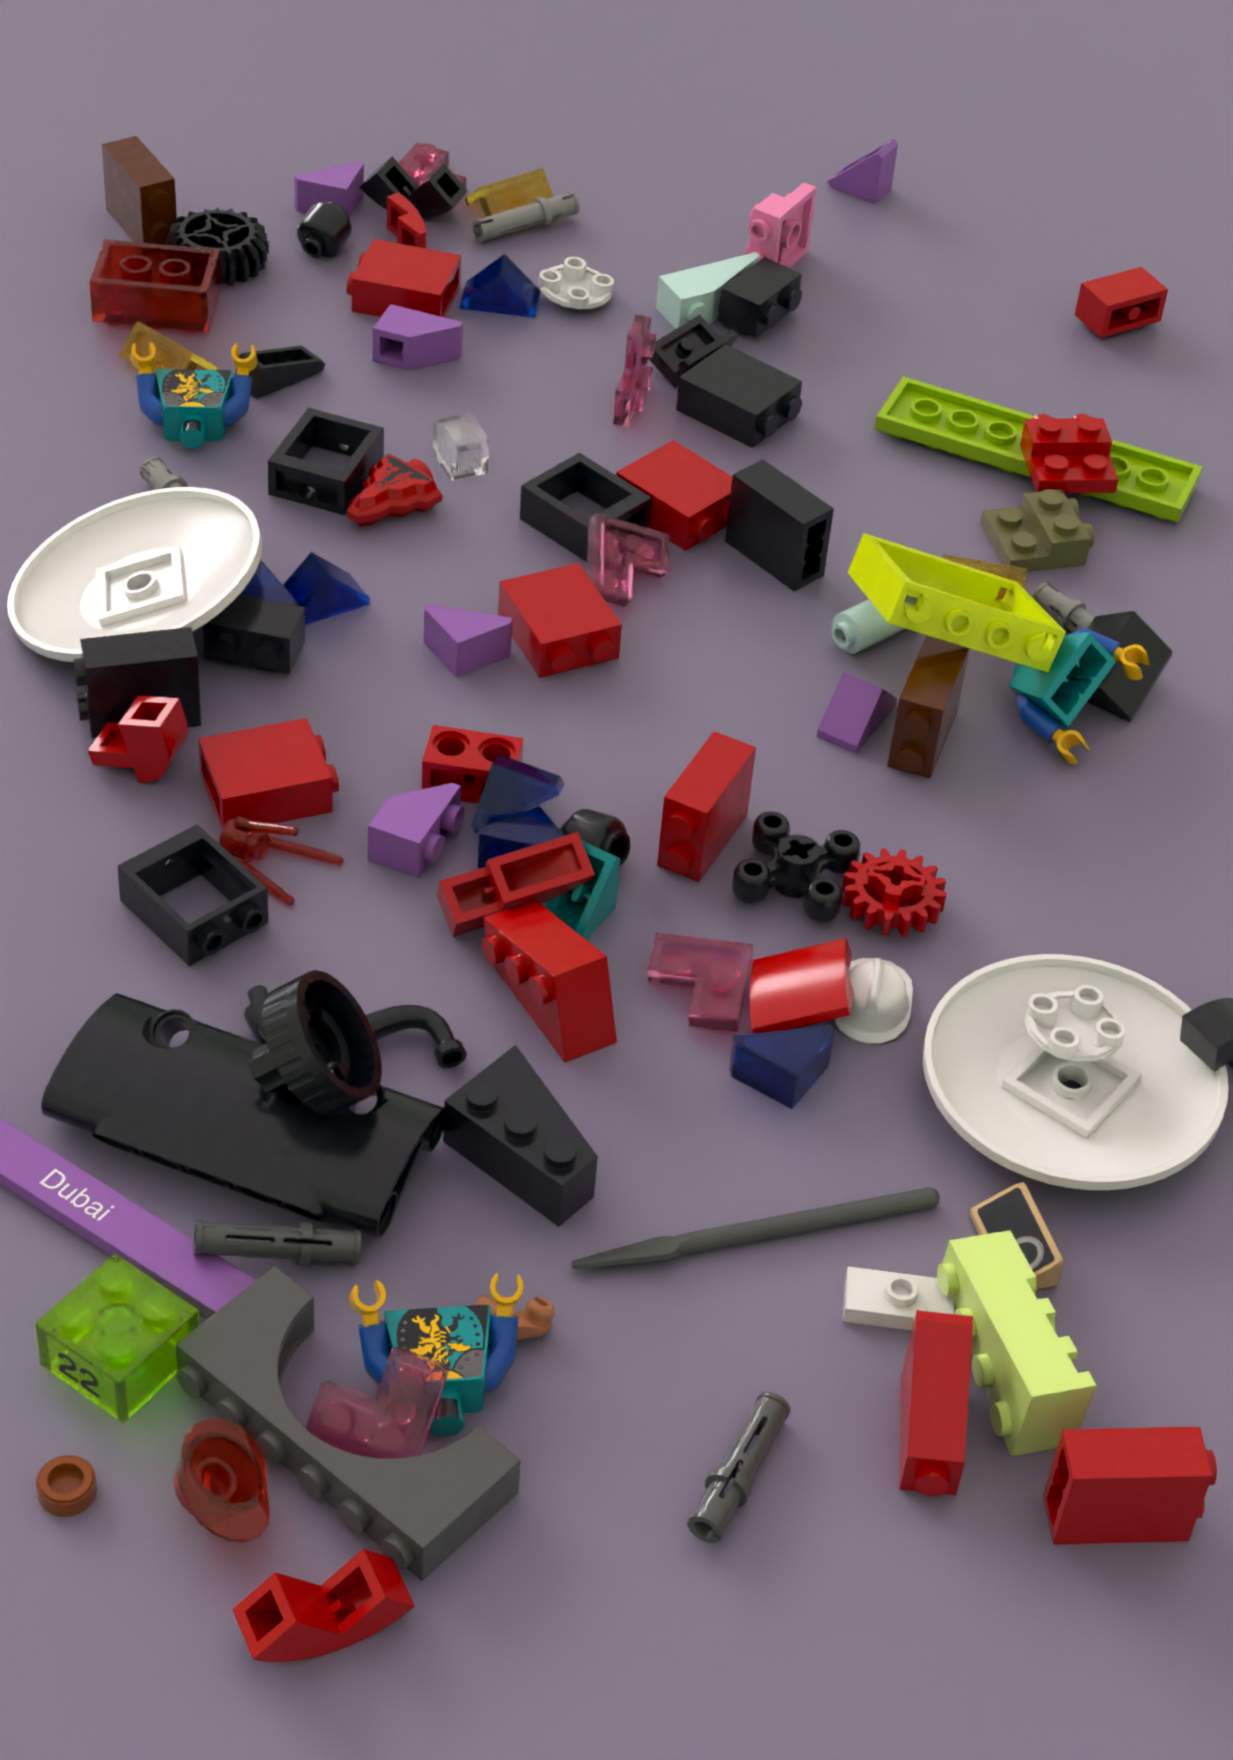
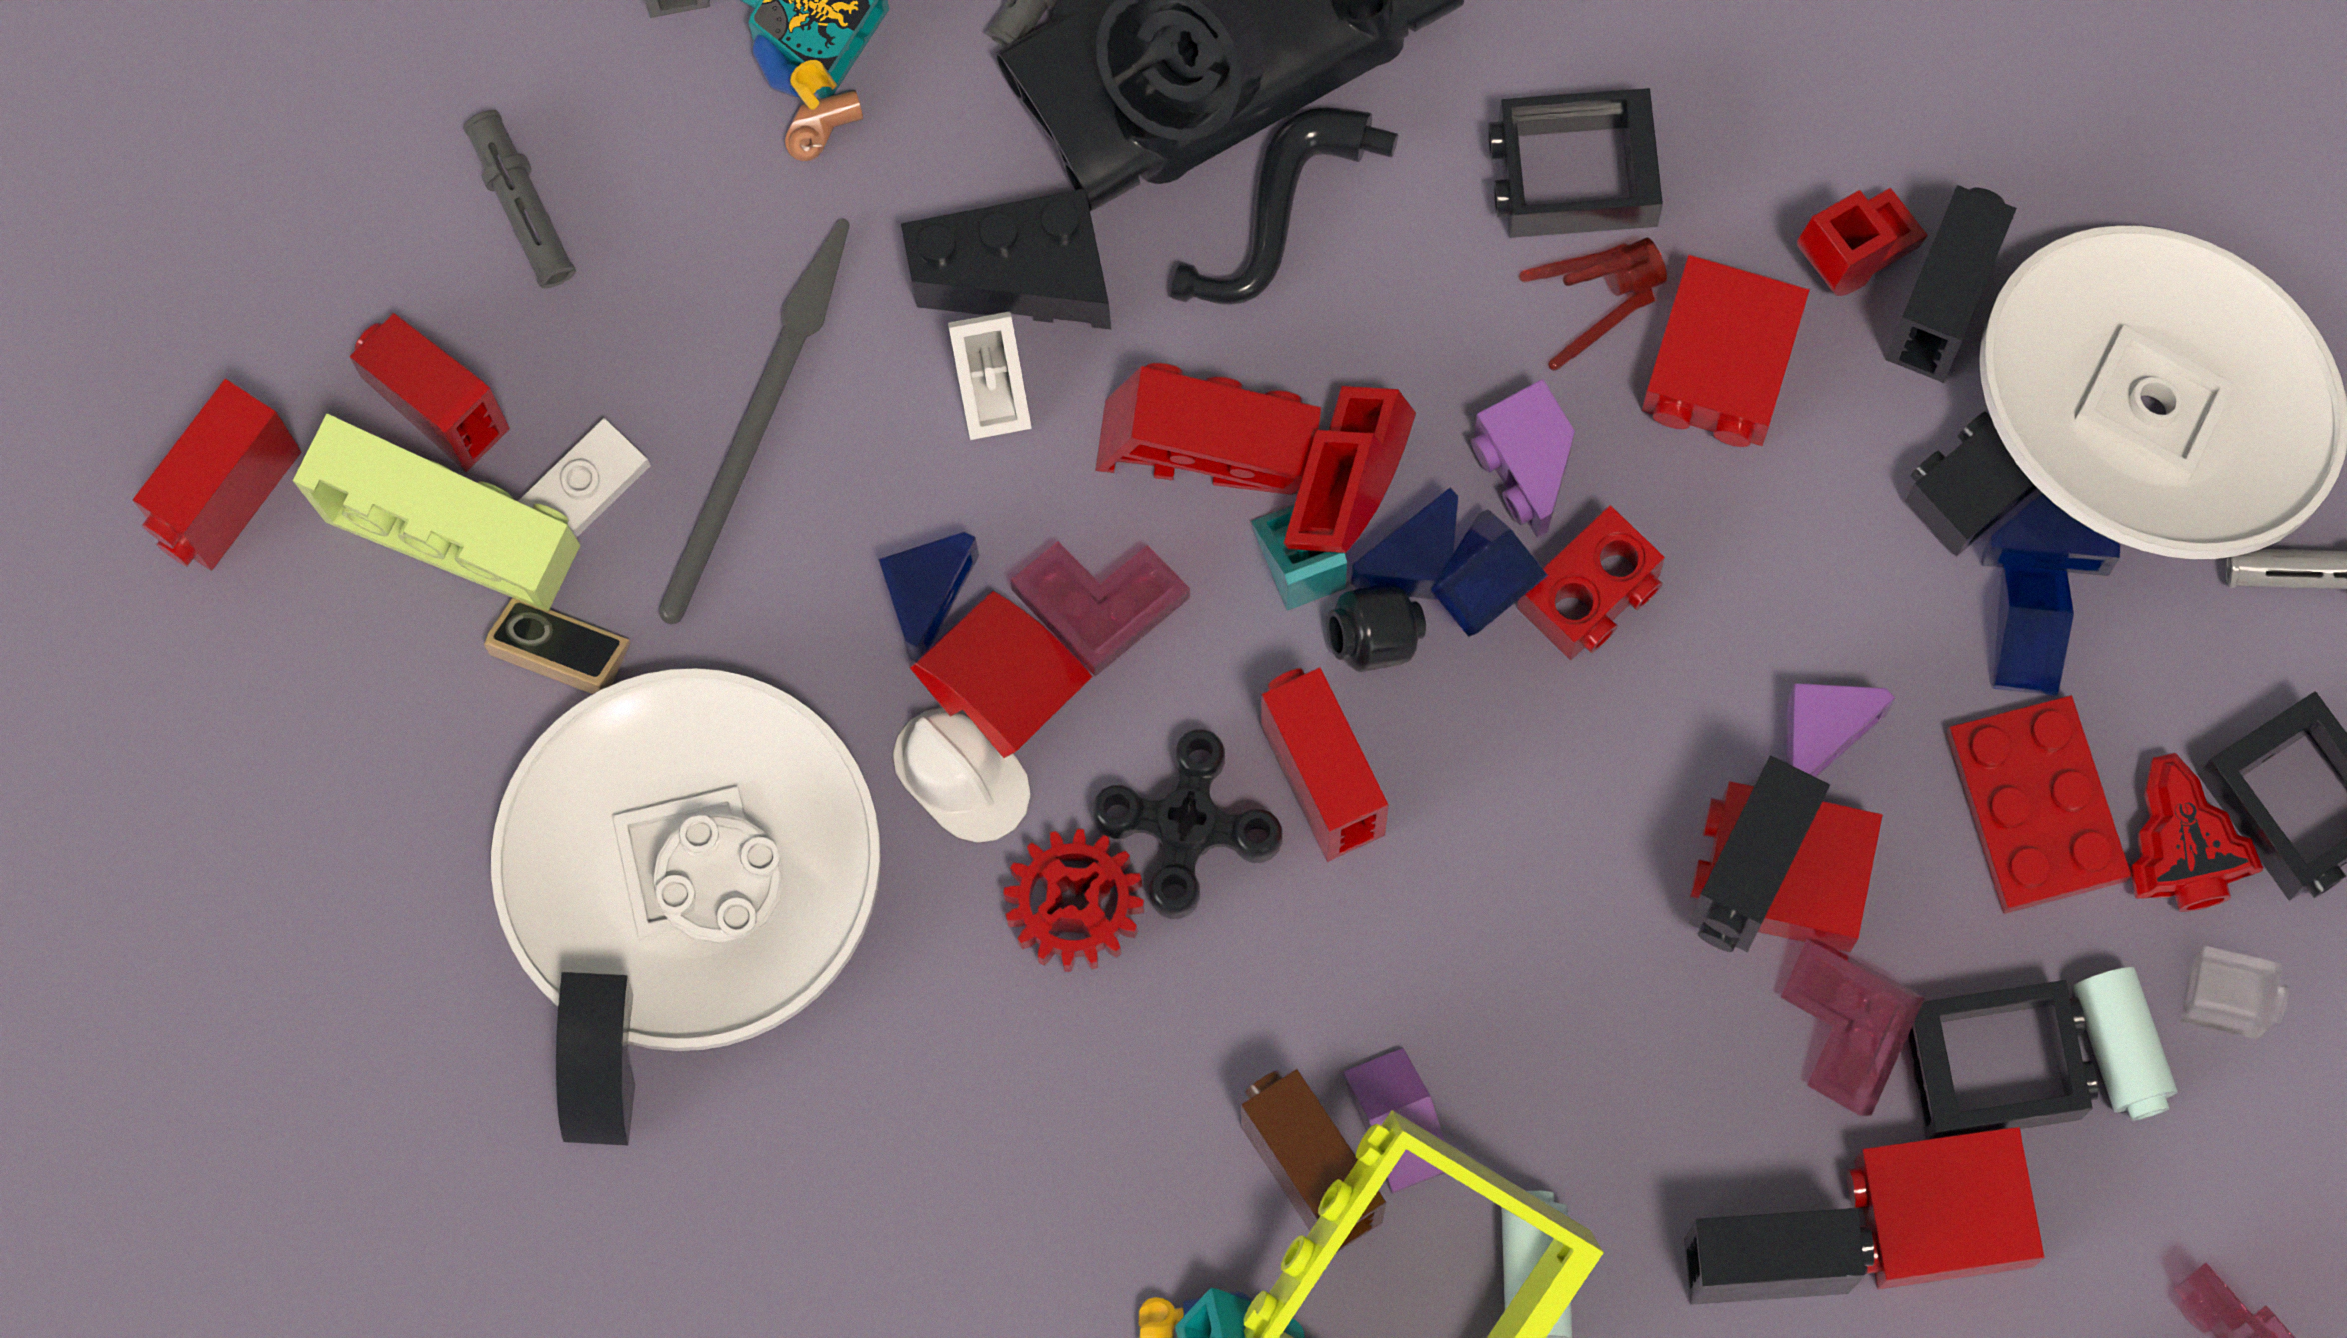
camera: 135 degrees right, 30 degrees up
(422, 557) = (2038, 804): none -> red plate
(505, 481) = (2126, 1043): none -> light aqua brick
(587, 579) = (1757, 855): none -> black brick
(608, 1113) = (989, 375): none -> white slope

